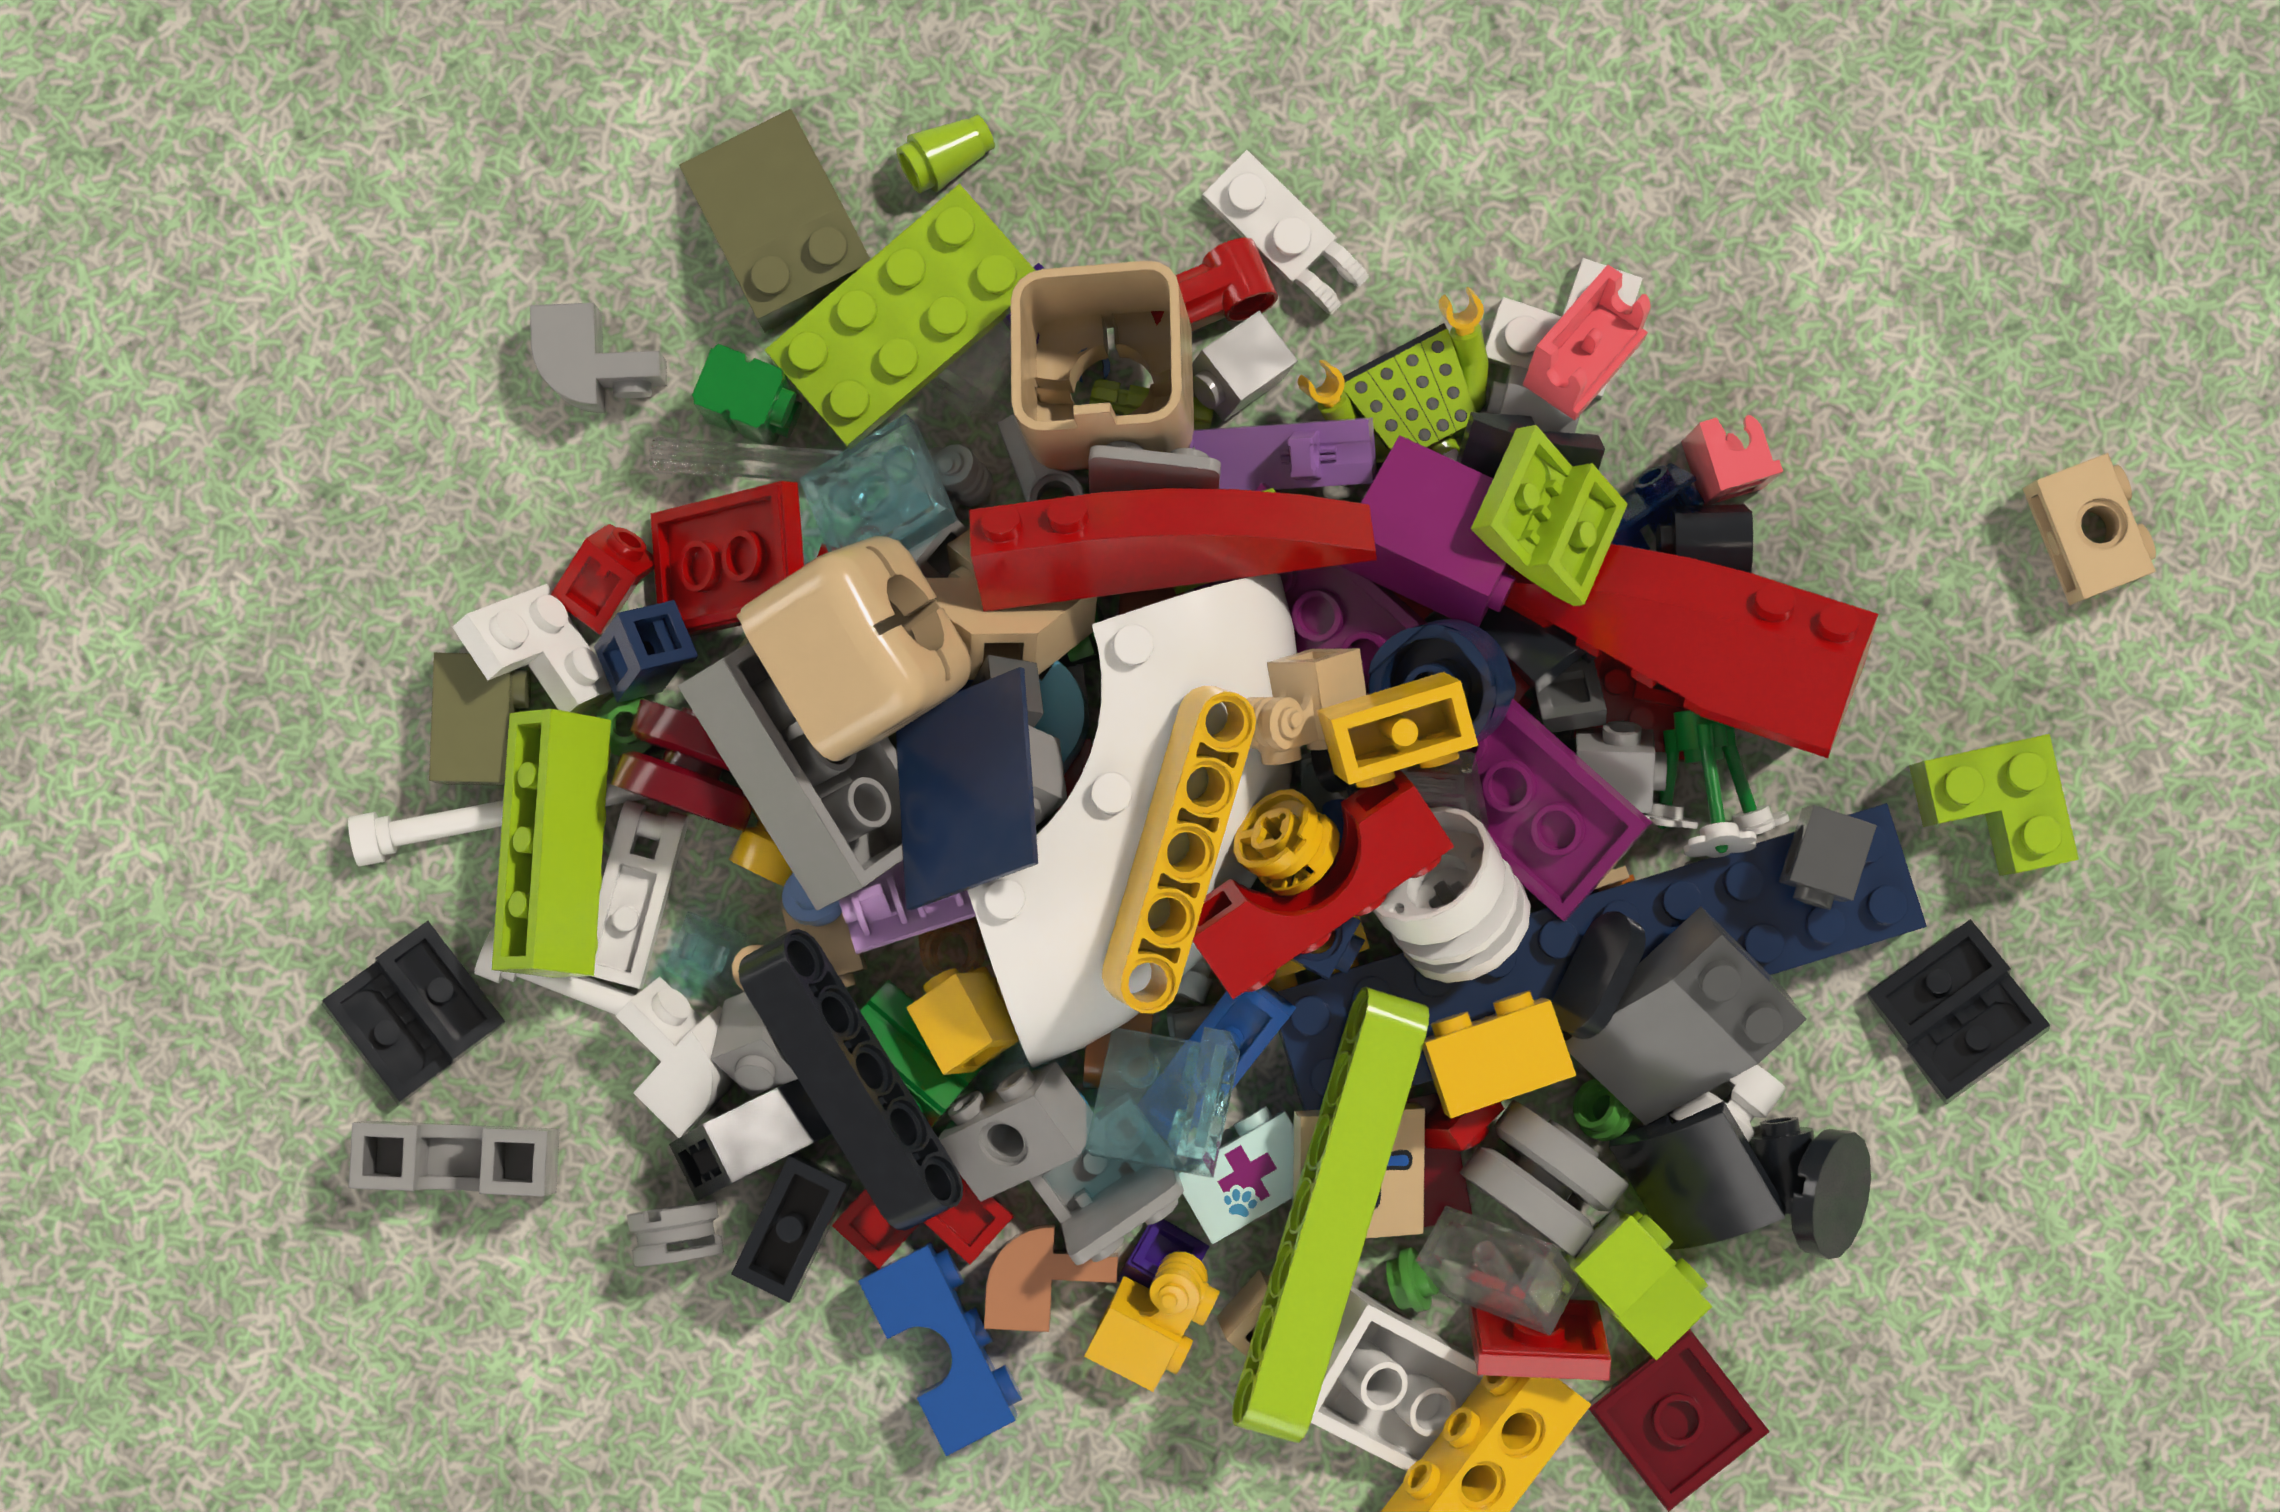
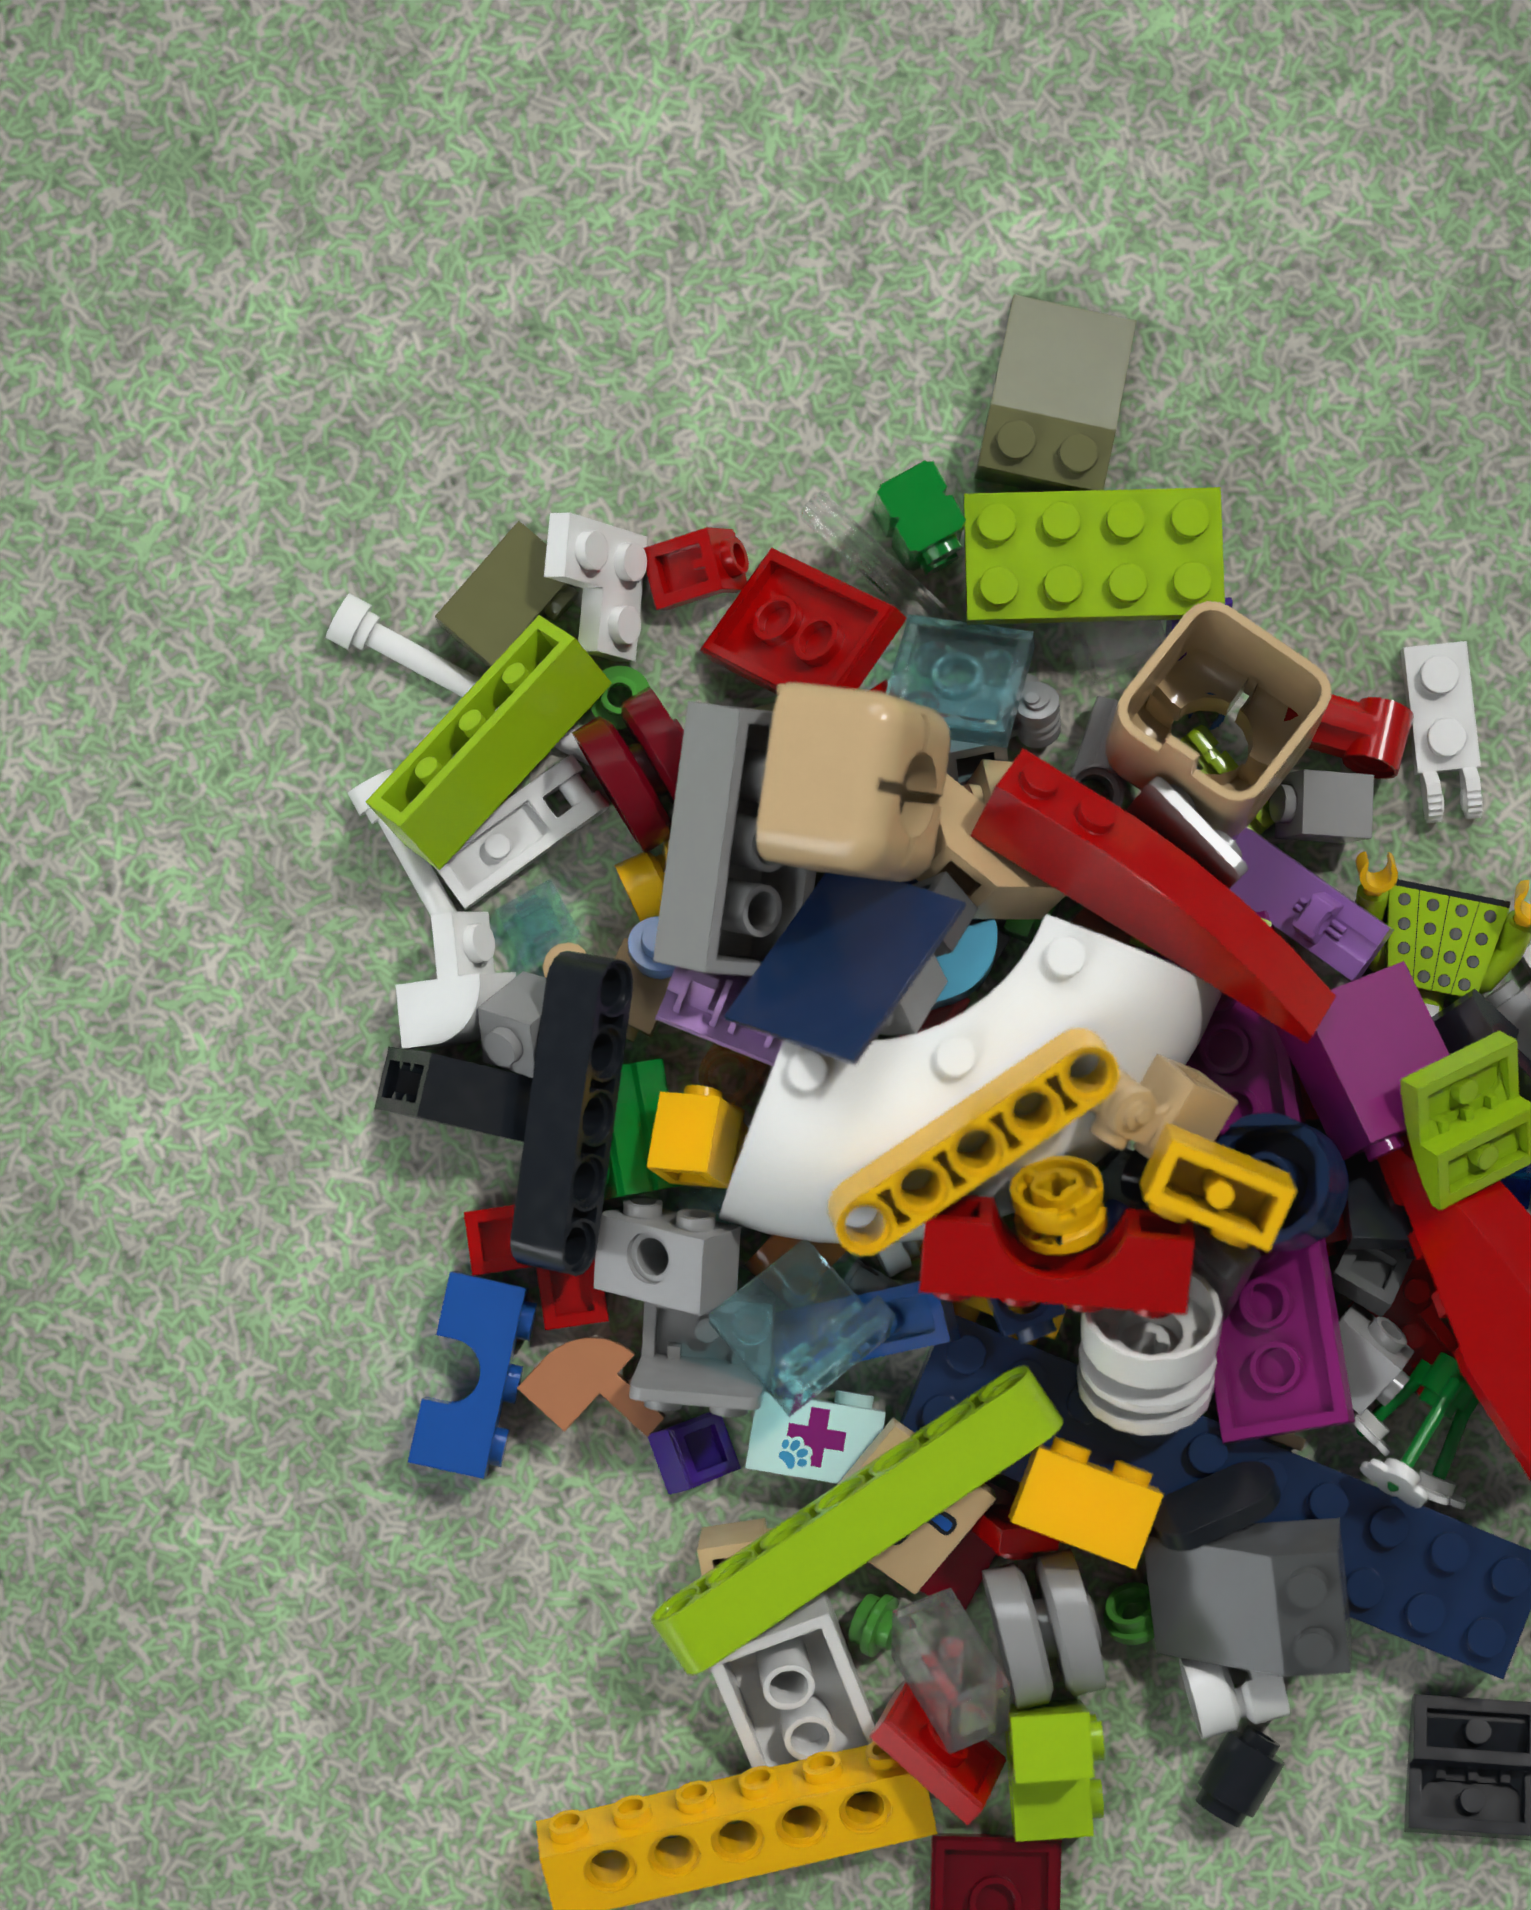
camera: 35 degrees right, 0 degrees up
(413, 1012) = (275, 784): black slope -> none
(454, 1158) = (217, 922): light grey arch -> none
(572, 360) = (806, 385): light grey brick -> none
(644, 650) = (681, 650): dark blue brick -> none
(671, 1226) = (342, 1112): light grey wheel -> none
(791, 1227) = (432, 1188): black brick -> none
(943, 152) = (1226, 451): lime cone -> none
(1146, 1326) = (640, 1490): yellow brick -> none
(1614, 884) = (1301, 1453): orange window -> none
(1699, 1177) = (1165, 1728): black slope -> none
(1826, 856) = (1469, 1560): dark grey brick -> none
(1833, 1193) = (1260, 1827): black tile -> none

